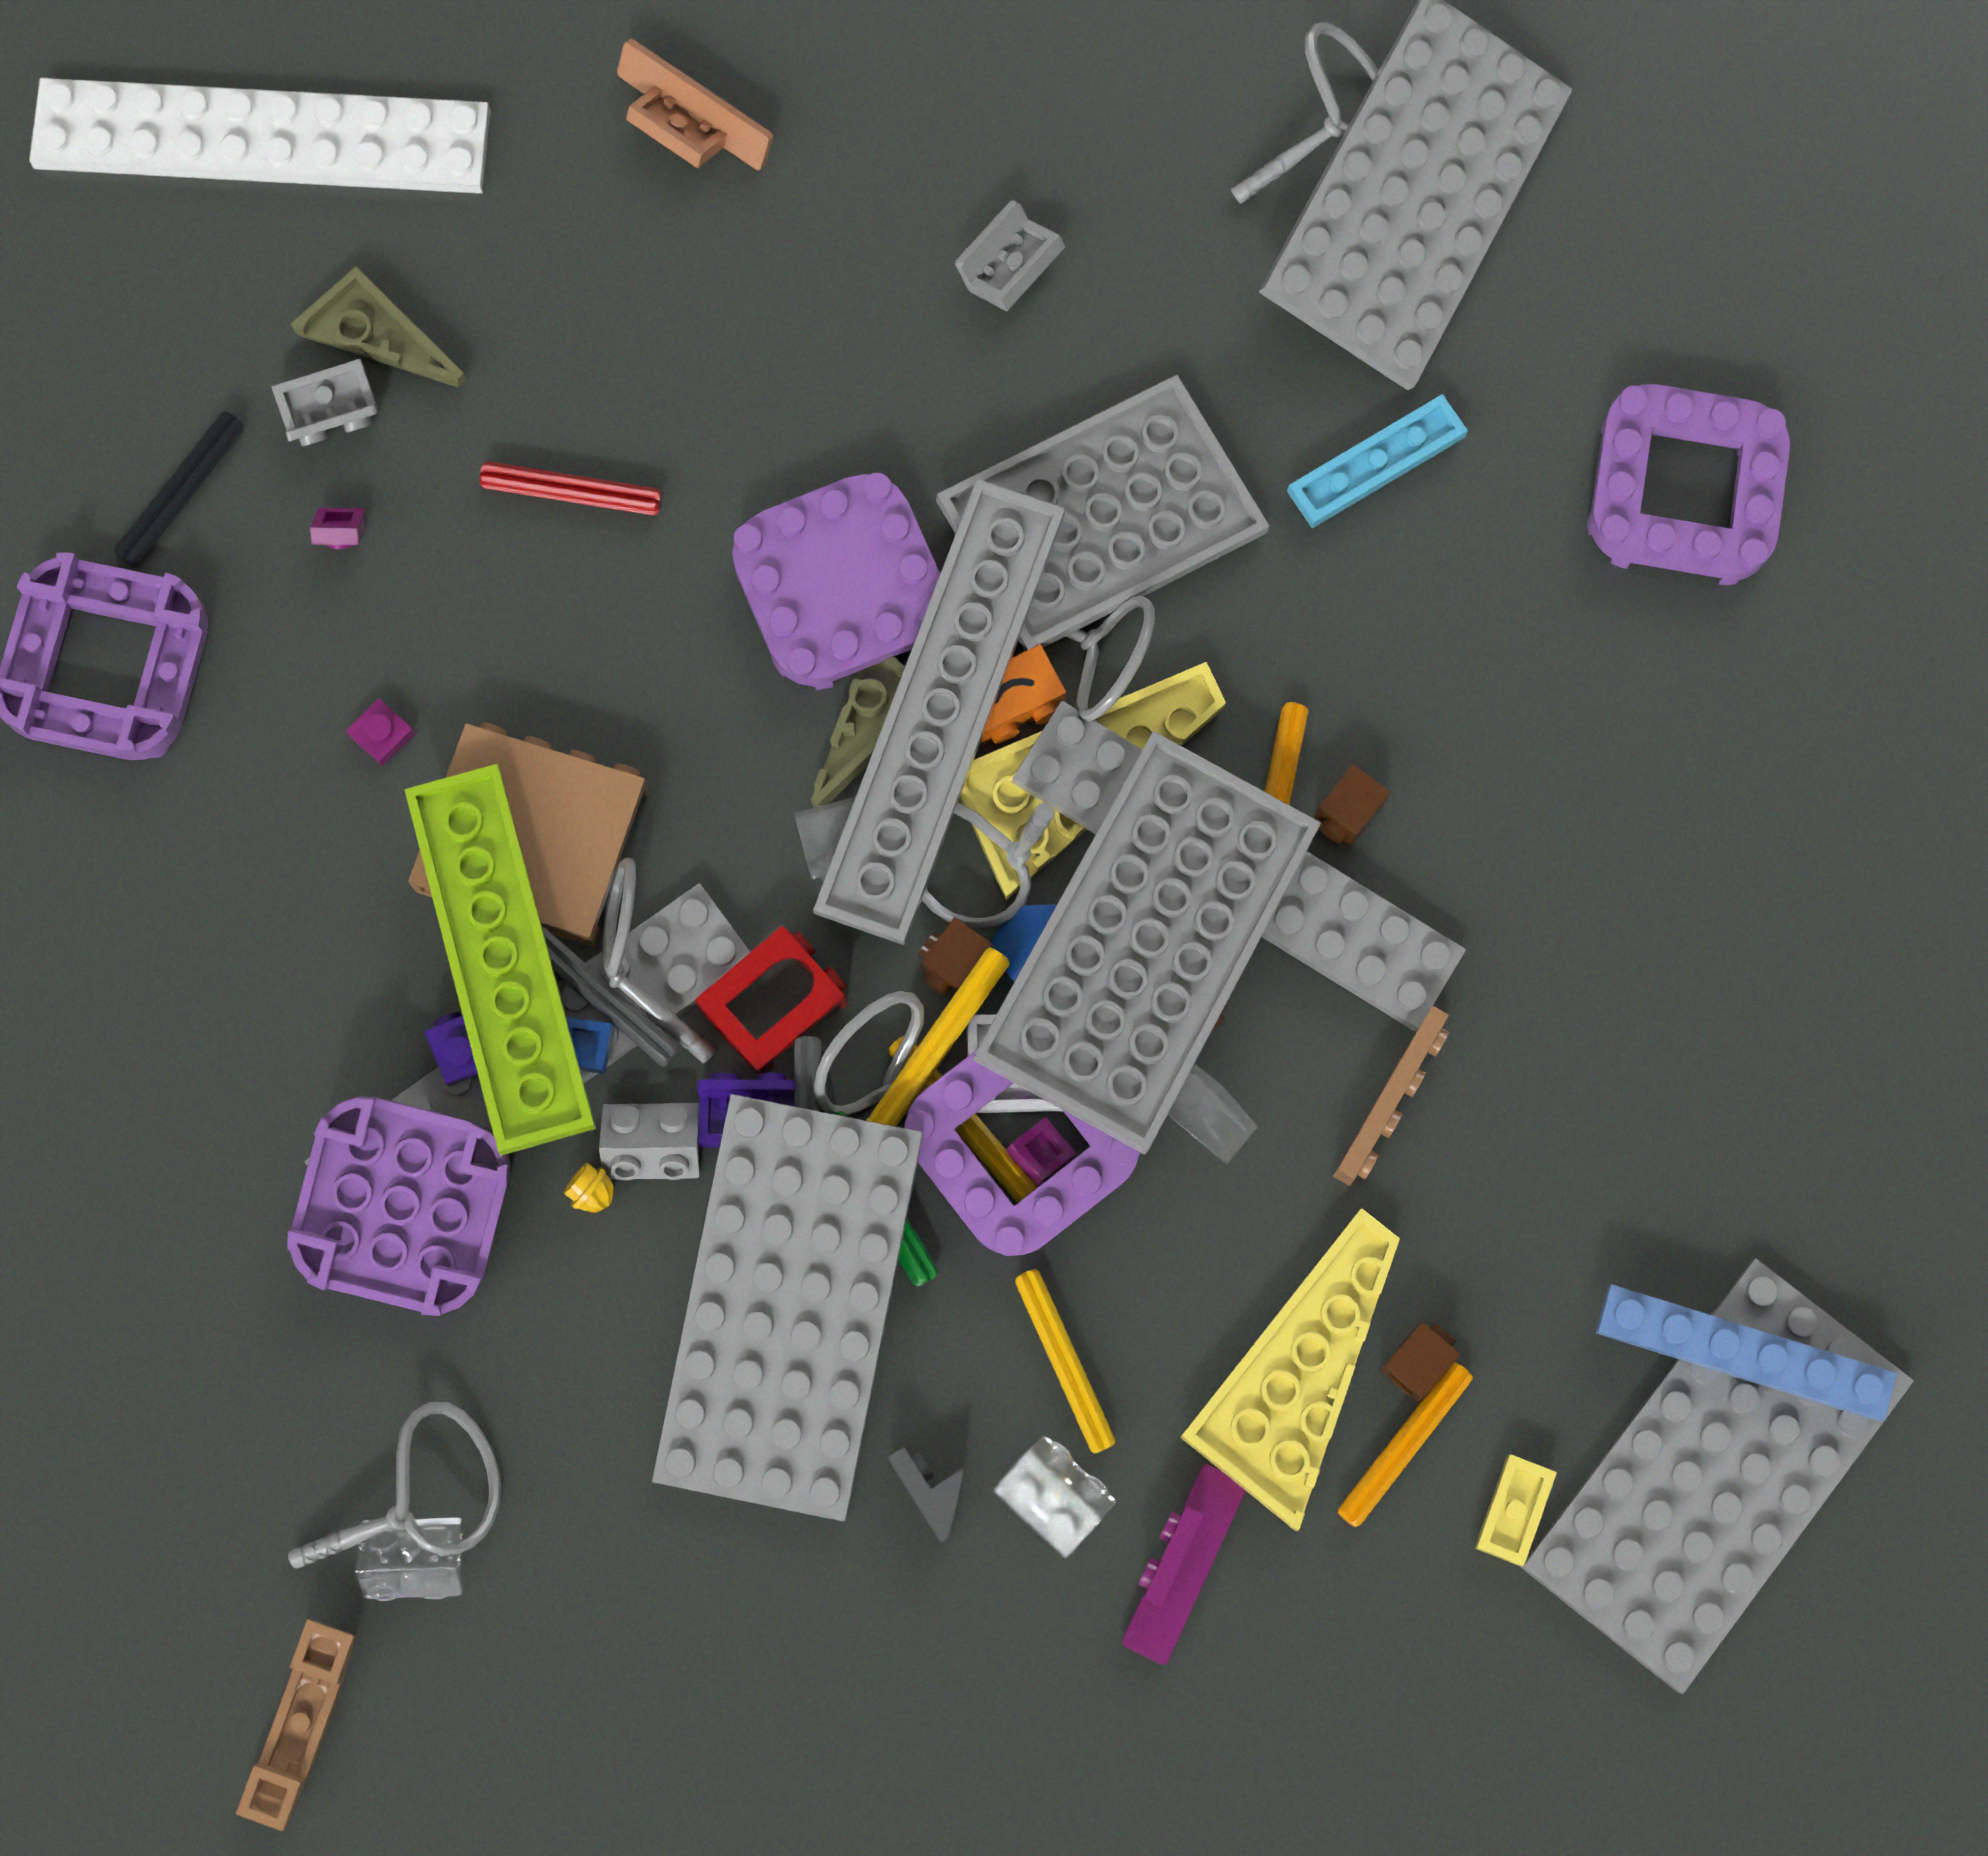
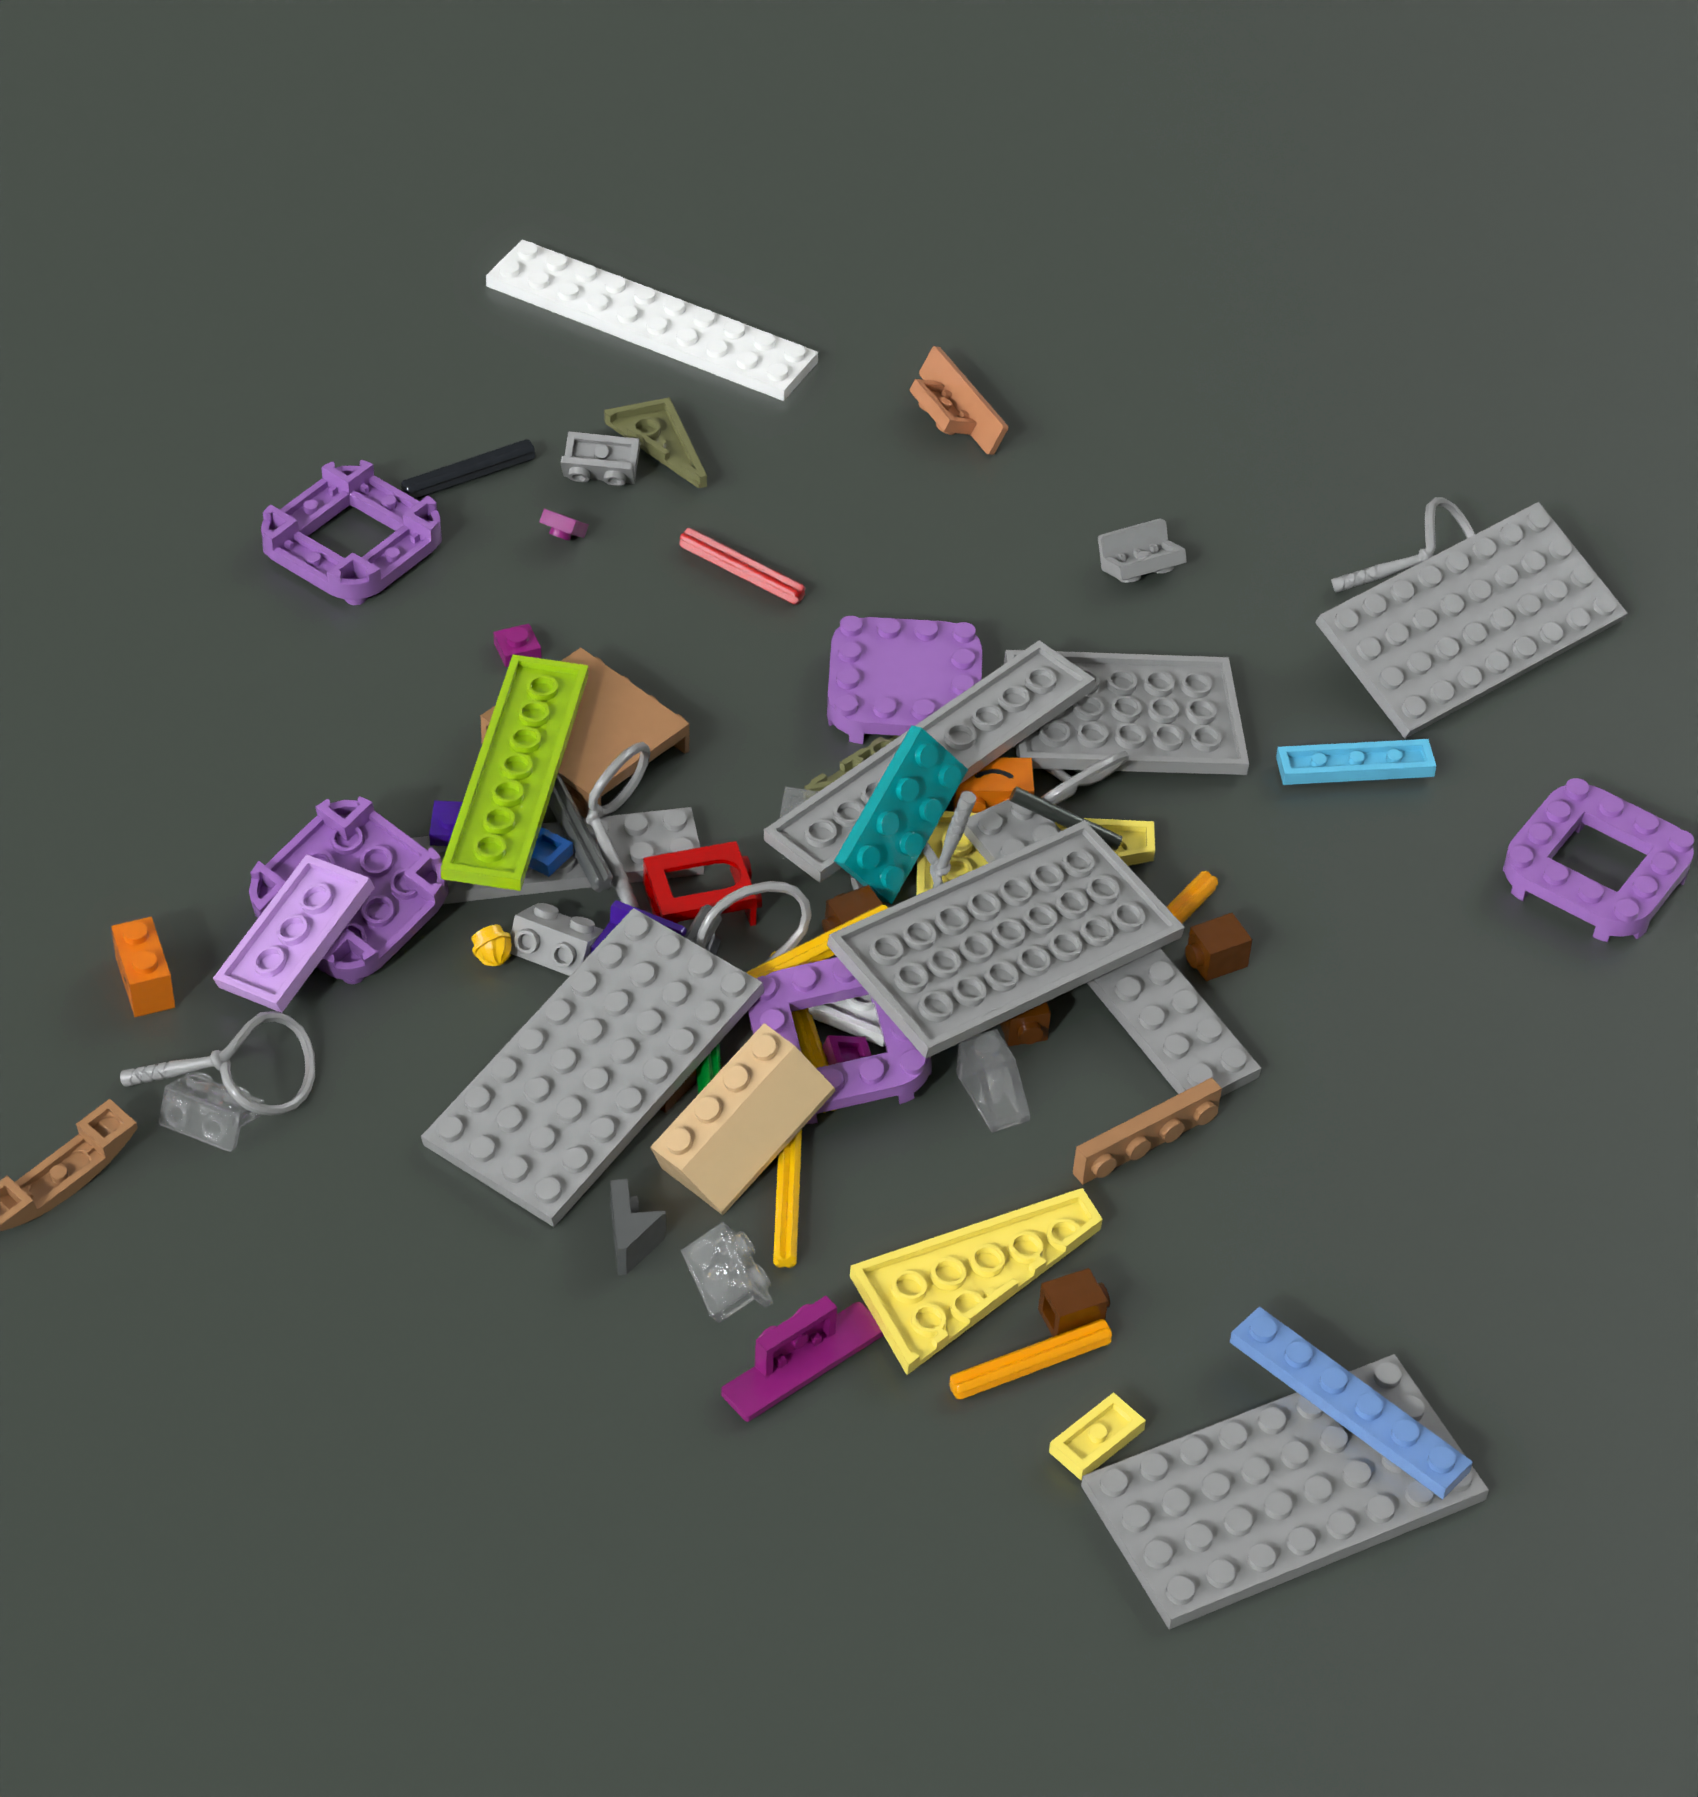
camera: 25 degrees right, 30 degrees down
(232, 1413) = (143, 966): none -> orange brick
(380, 1304) = (294, 933): none -> lavender plate
(954, 820) = (901, 814): none -> teal plate
(985, 1311) = (742, 1119): none -> tan slope
(1123, 724) = (1060, 815): none -> pearl dark grey bar

